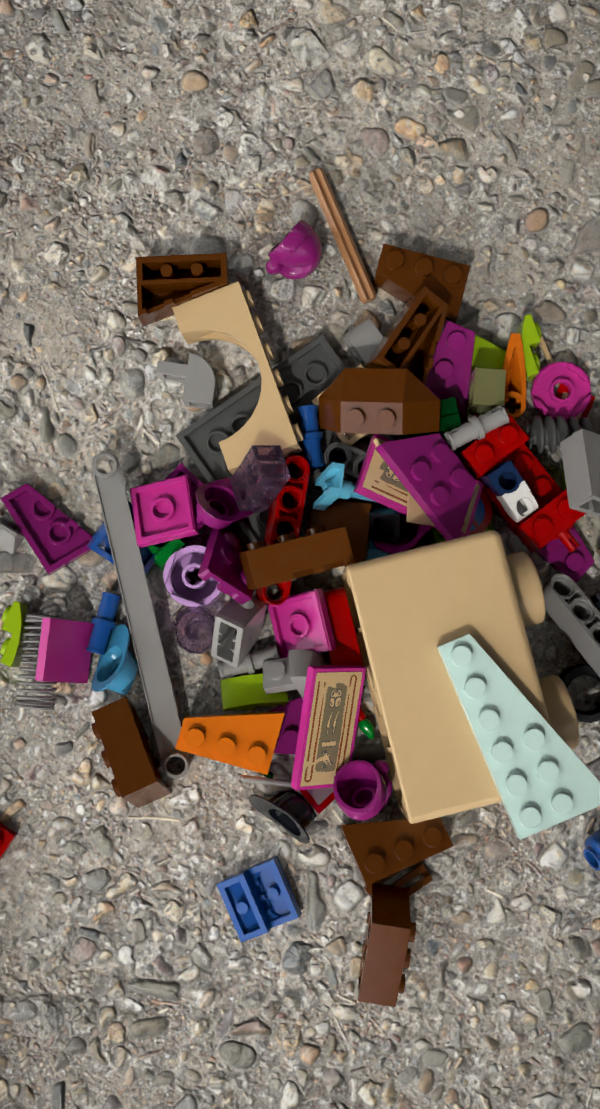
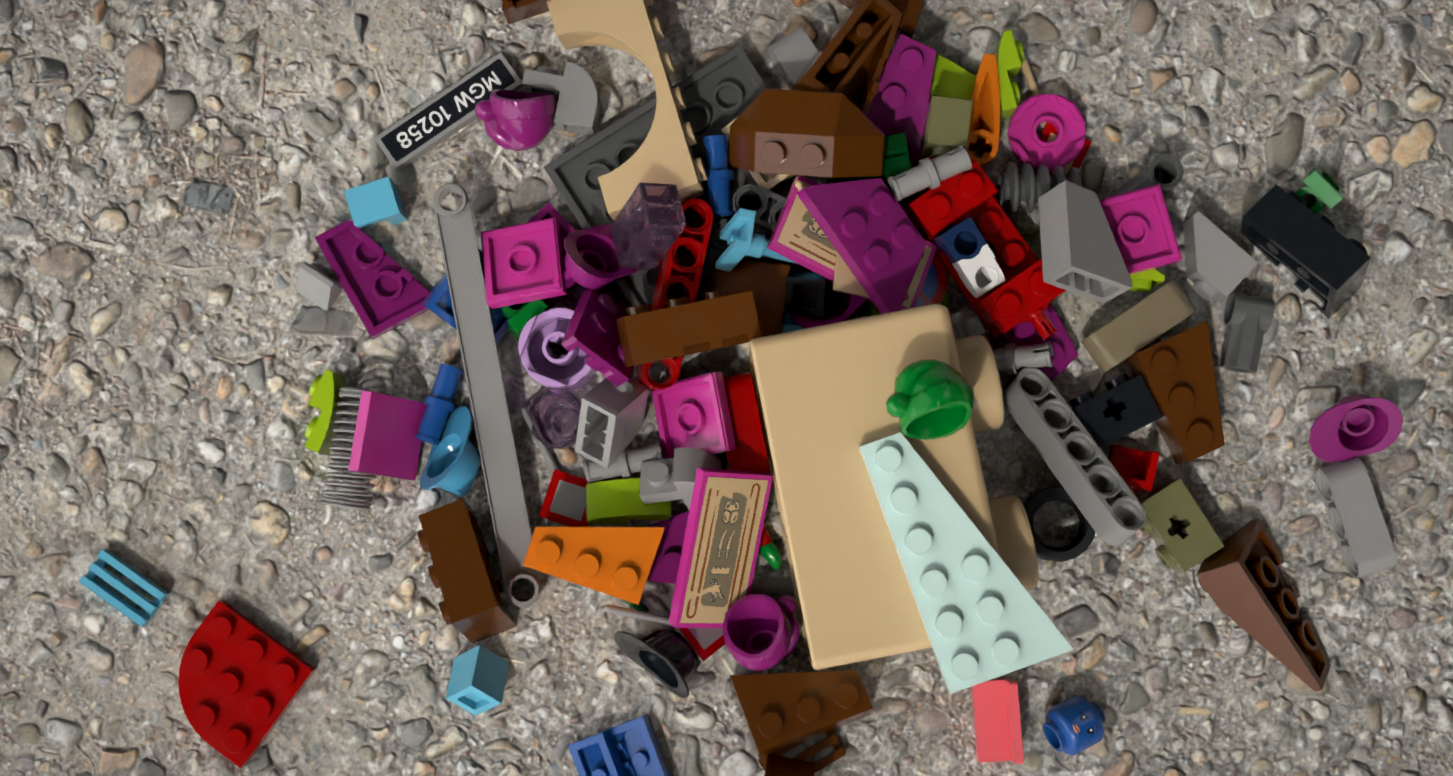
camera: 10 degrees right, 0 degrees up
(46, 469) = (375, 203): none -> medium azure panel
(100, 396) = (445, 112): none -> tile
(143, 837) = (477, 680): none -> medium azure panel
(153, 398) = (517, 118): none -> magenta piece
(205, 686) = (566, 493): none -> piece
(493, 607) = (930, 400): none -> green piece
(550, 566) = (1015, 358): none -> light grey pin
(550, 854) = (997, 721): none -> coral panel

